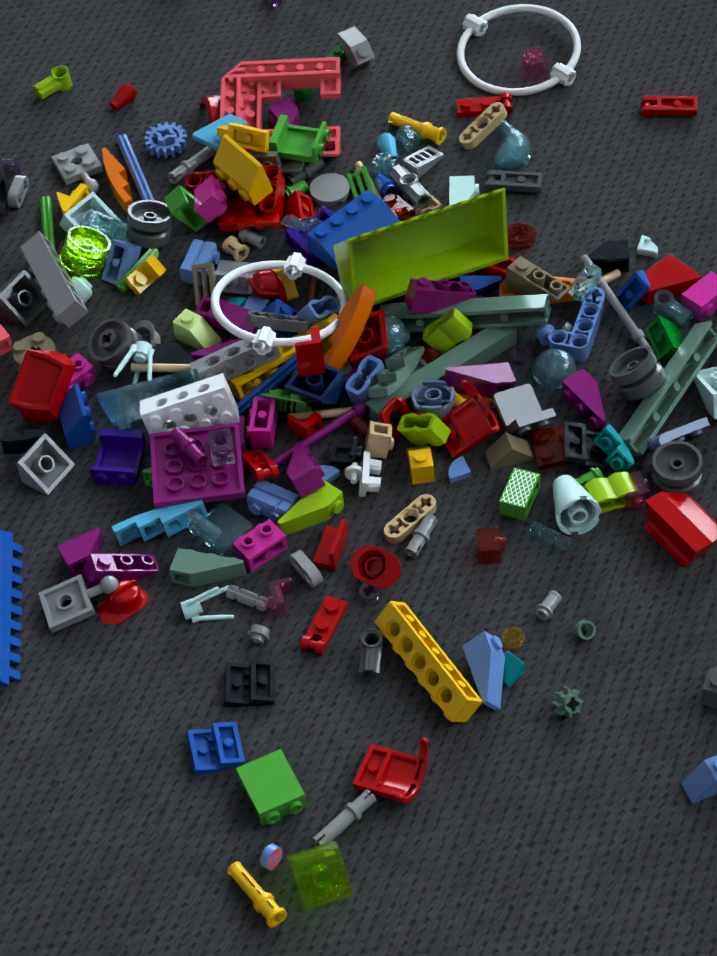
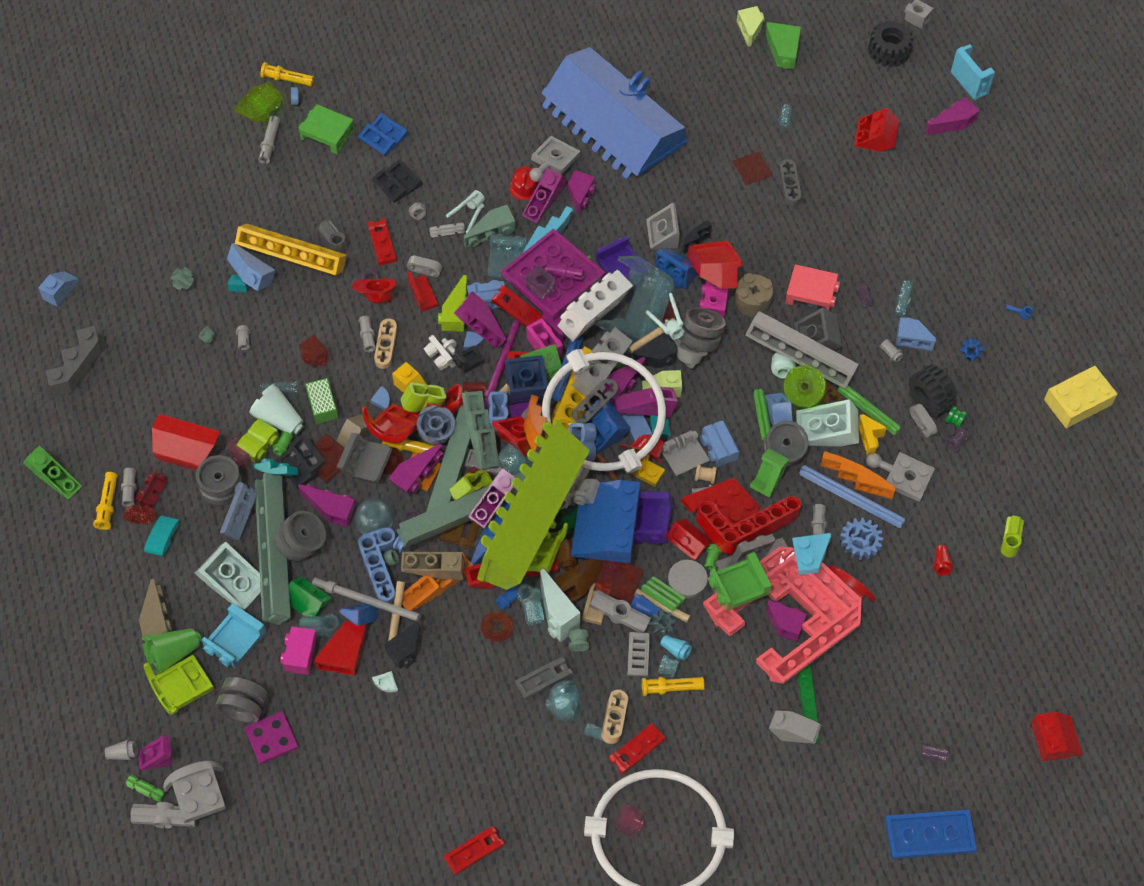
camera: 135 degrees right, 10 degrees up
(99, 217) = (819, 424): clear light blue slope -> none
(145, 275) = (748, 410): yellow slope -> none
(210, 198) = (757, 488): dark pink brick -> none
(210, 266) = (692, 421): dark tan tile -> none
(241, 171) = (745, 511): yellow slope -> none
(246, 136) = (782, 544): yellow hinge -> none
(260, 545) = (468, 261): dark pink brick -> none
(279, 589) = (424, 236): clear pink bracket -> none
(307, 225) = (658, 512): clear light blue slope -> none
(310, 355) = (533, 374): red panel -> none
(379, 440) = (450, 376): tan brick -> none
(392, 773) = (260, 176): red piece -> none
(513, 638) = (250, 303): clear yellow plate -> none
(590, 284) = (392, 589): clear light blue beam -> none

